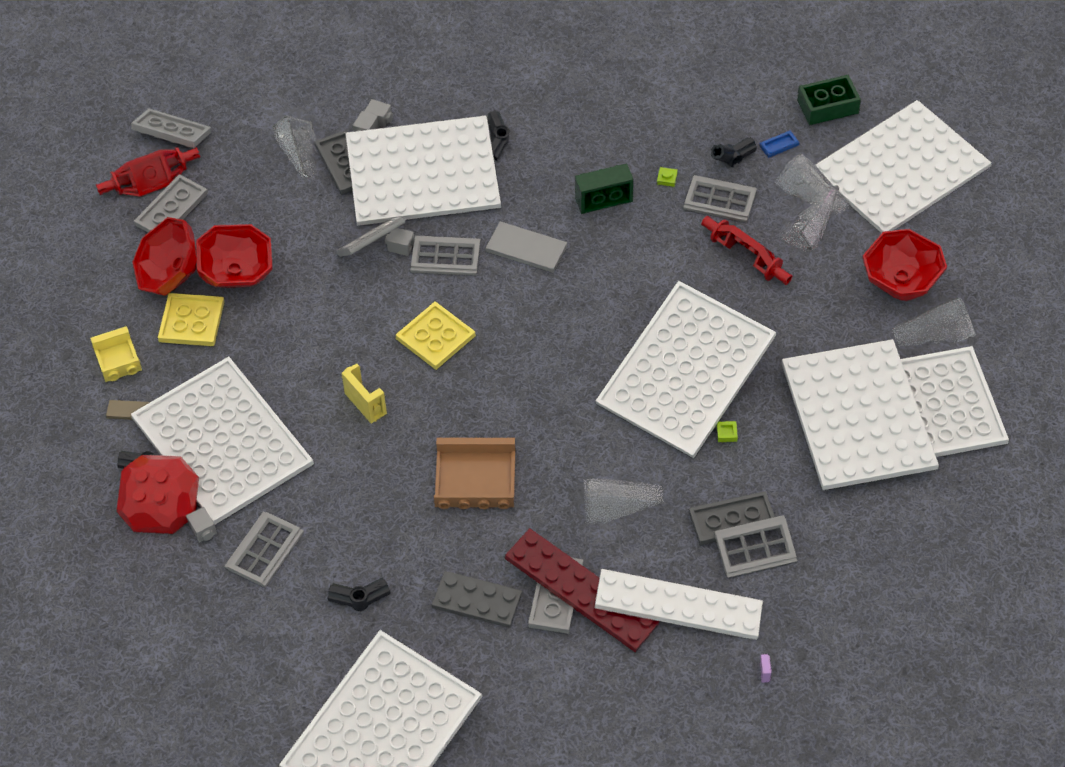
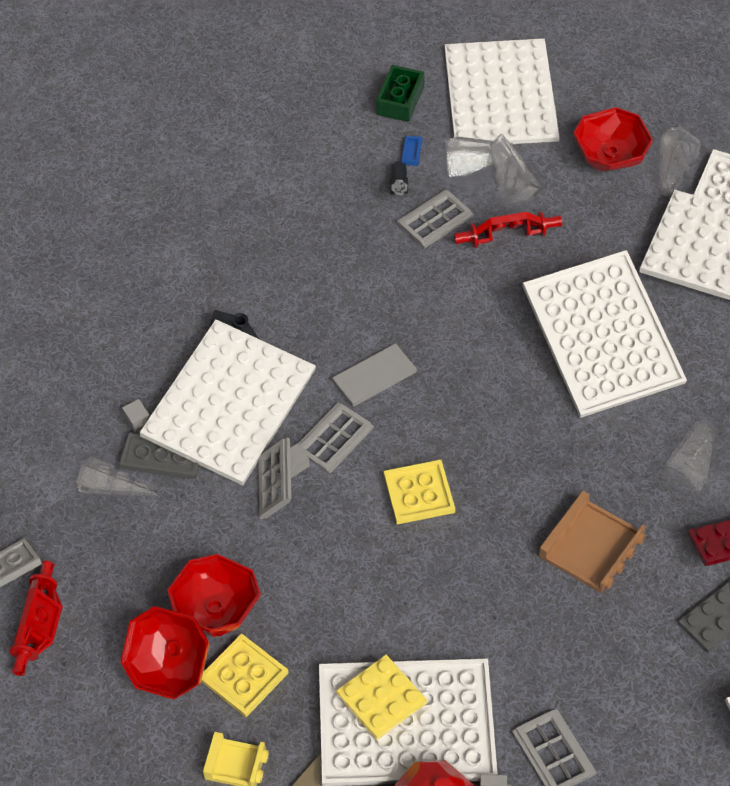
camera: 55 degrees left, 0 degrees up
(174, 202) = (92, 622): light grey plate -> none
(226, 409) = (381, 697): none -> light yellow plate
(348, 595) = (656, 709): black piece -> none
(370, 404) = (448, 581): light yellow panel -> none
(382, 110) = (130, 395): light grey brick -> none
(604, 188) = (366, 284): dark green brick -> none
(667, 176) = (382, 239): lime plate -> none
(727, 431) = (679, 345): lime plate -> none

